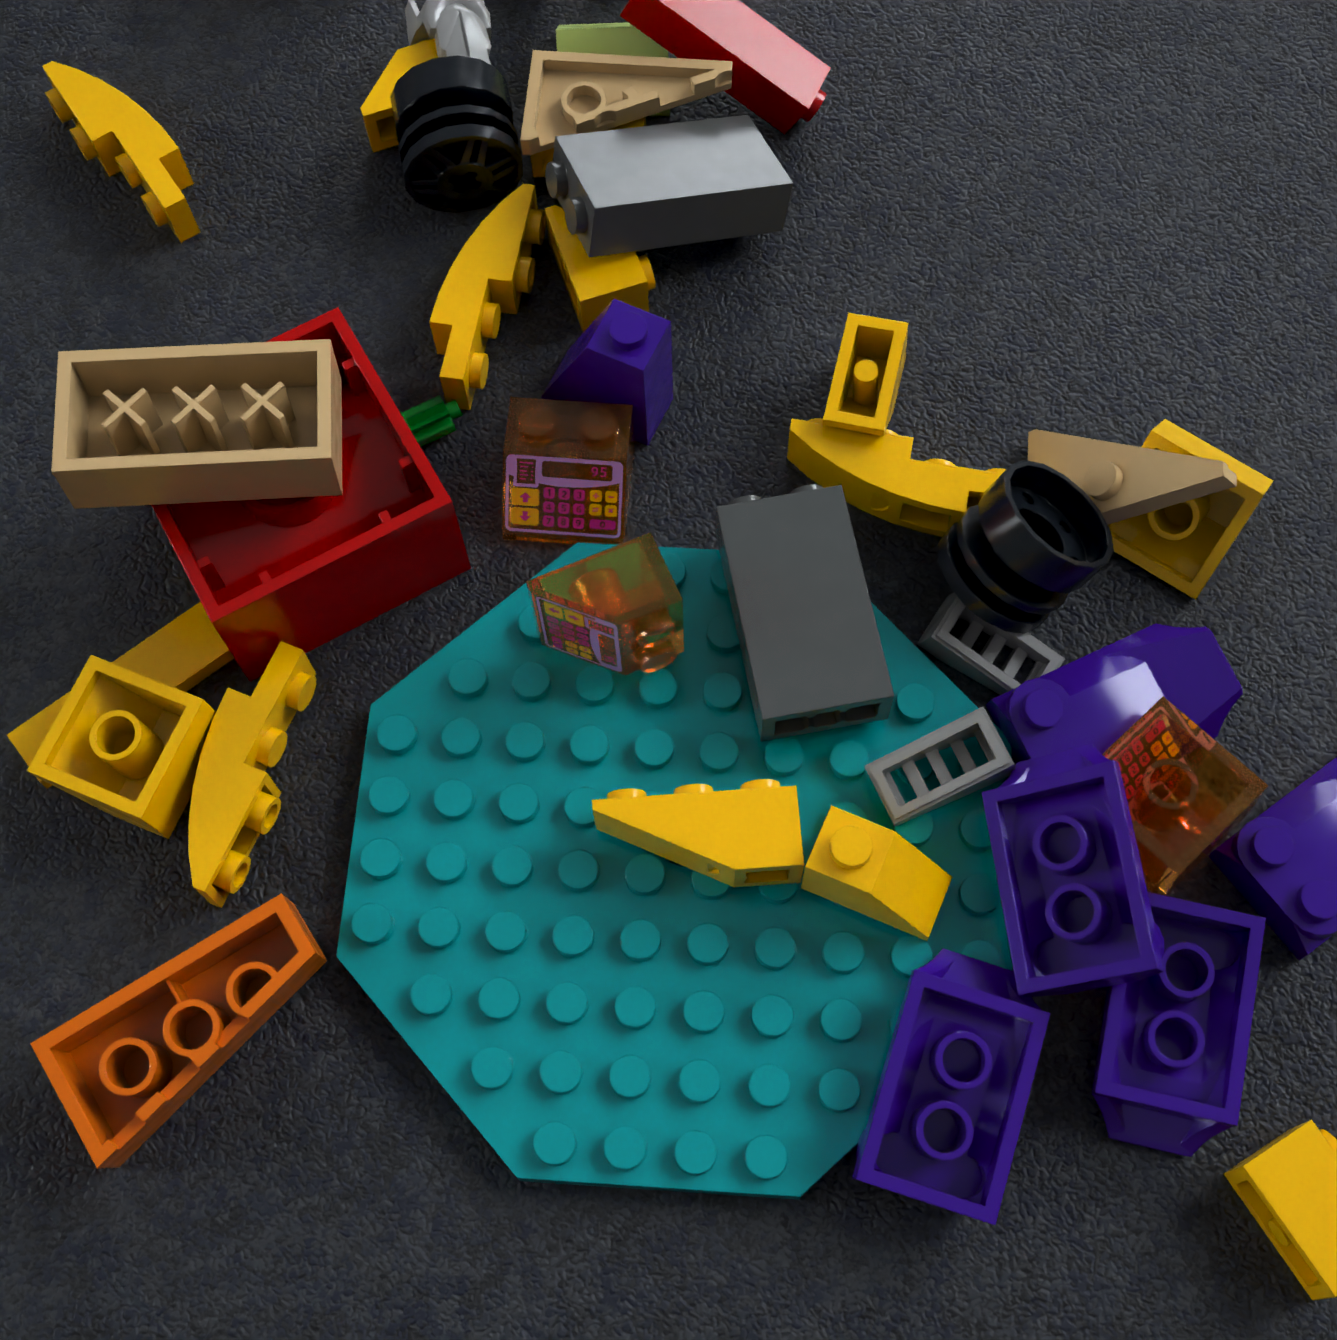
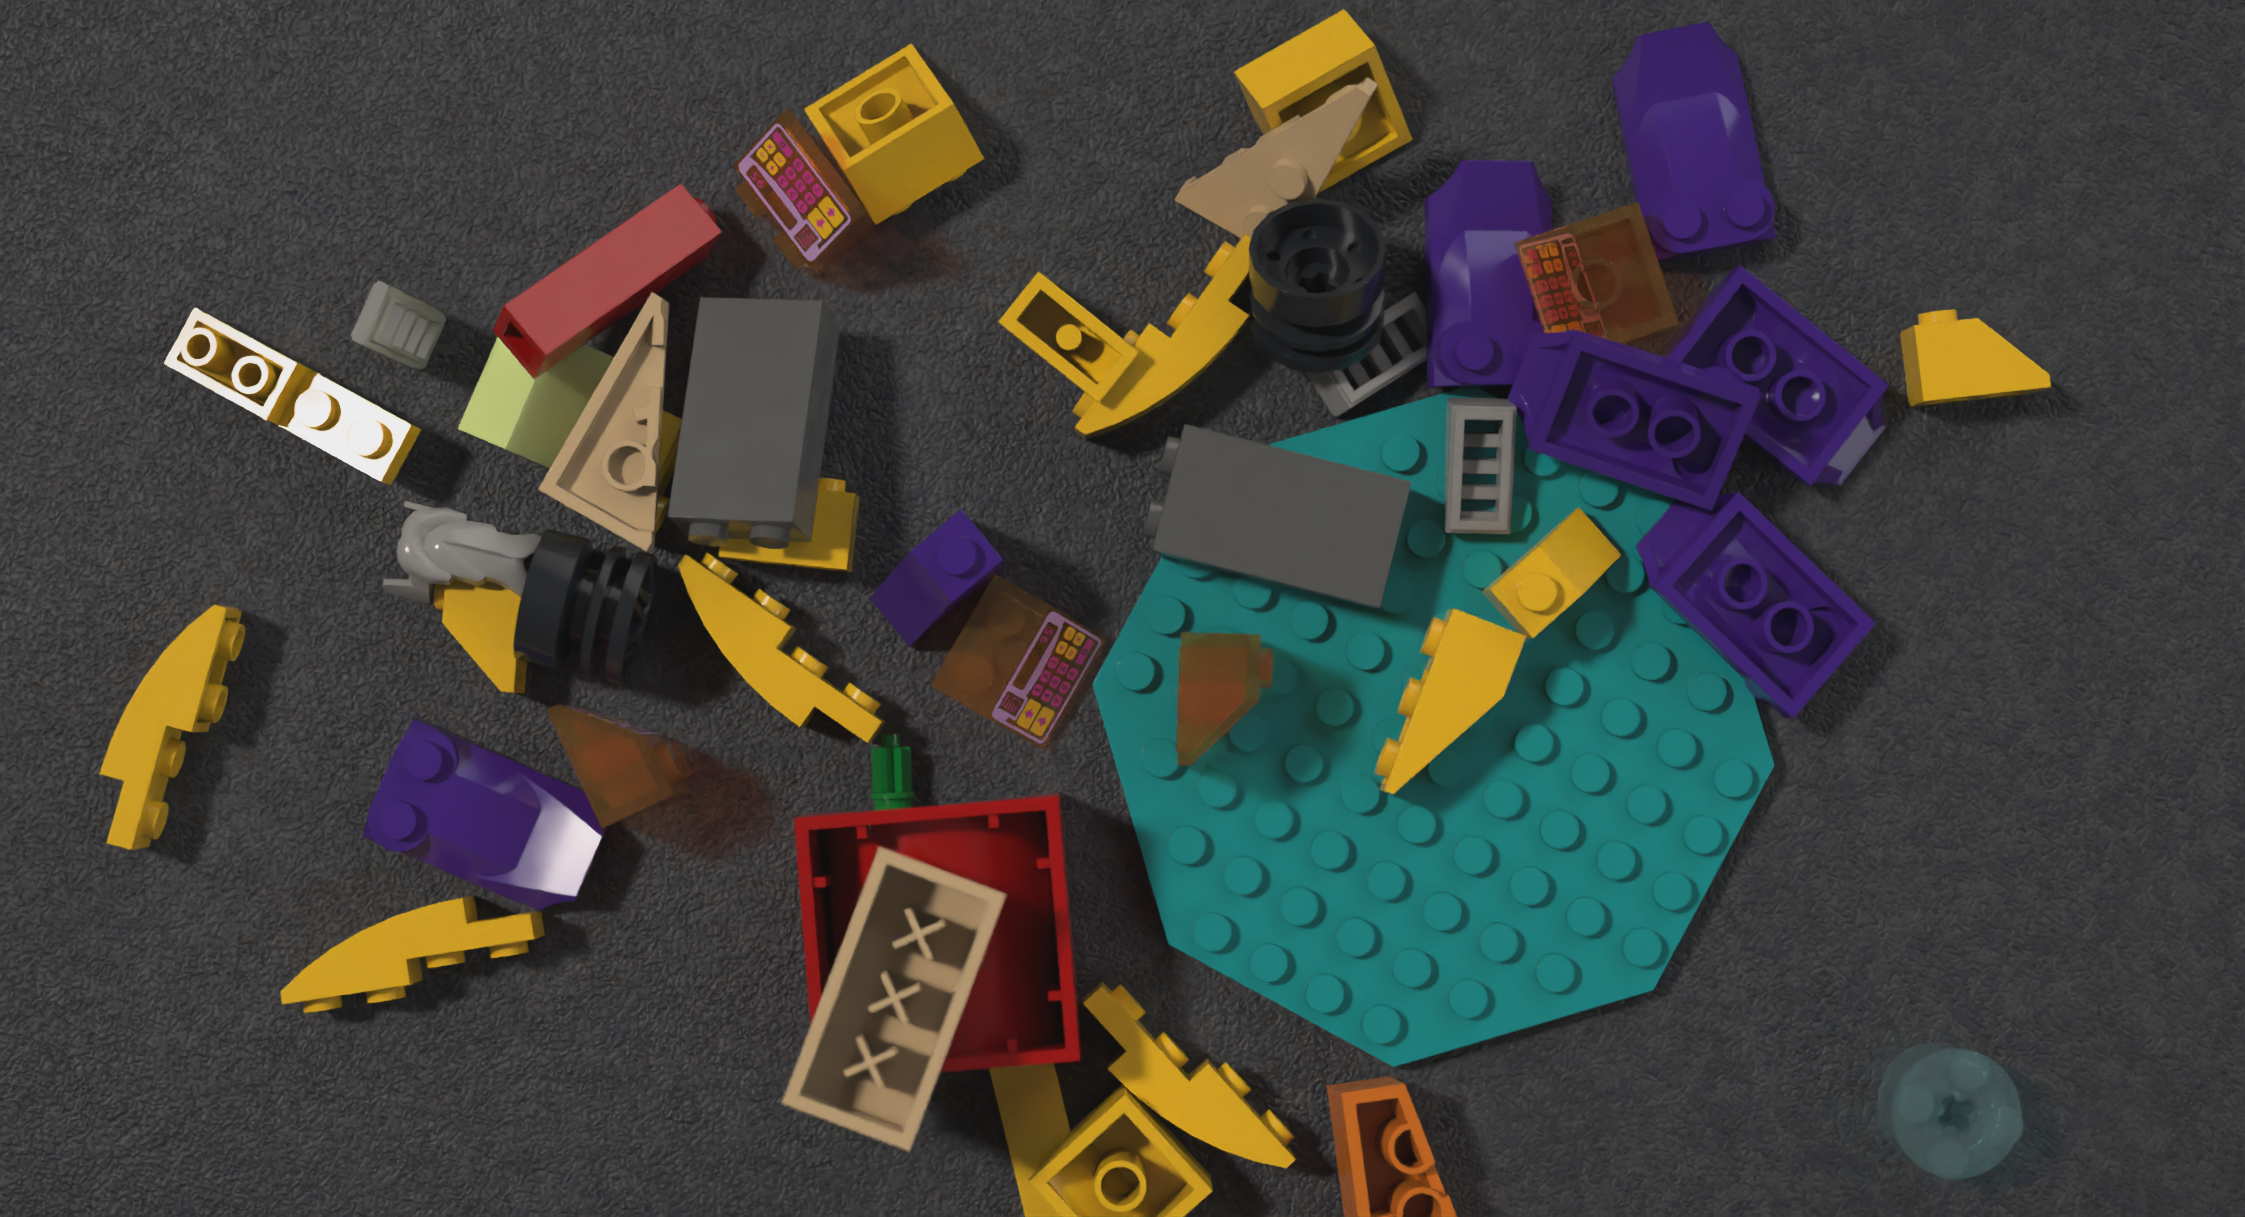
camera: 70 degrees left, 20 degrees up
(258, 149) = (484, 818): none -> dark purple slope
(334, 207) = (620, 763): none -> clear orange slope
(872, 155) = (802, 194): none -> clear orange slope
(953, 206) = (894, 134): none -> yellow slope

